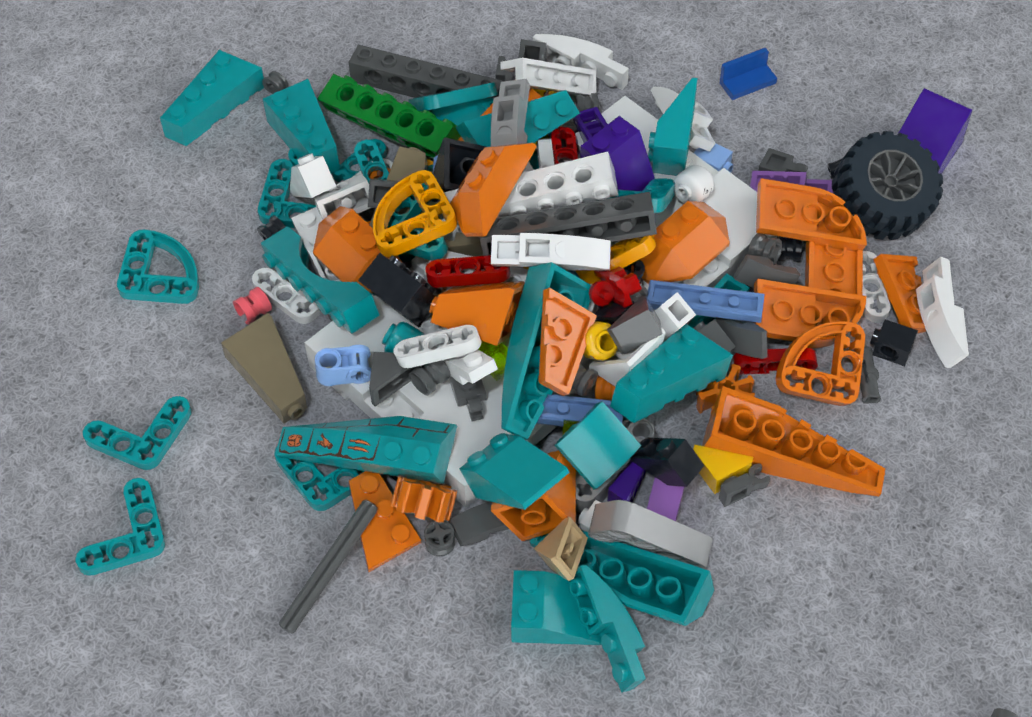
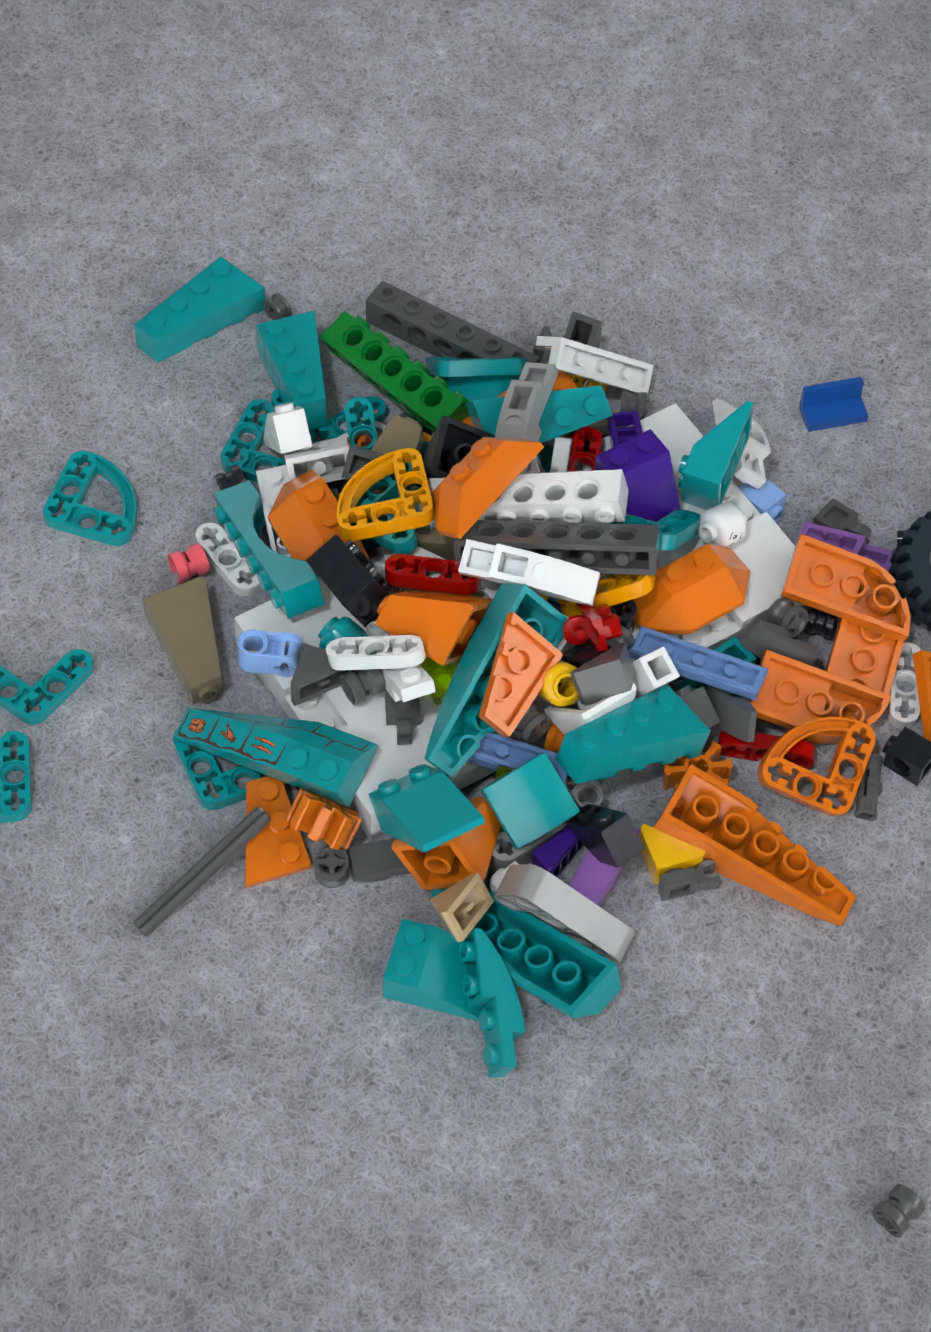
camera: 10 degrees right, 0 degrees up
(586, 55) = (638, 340): white slope -> none

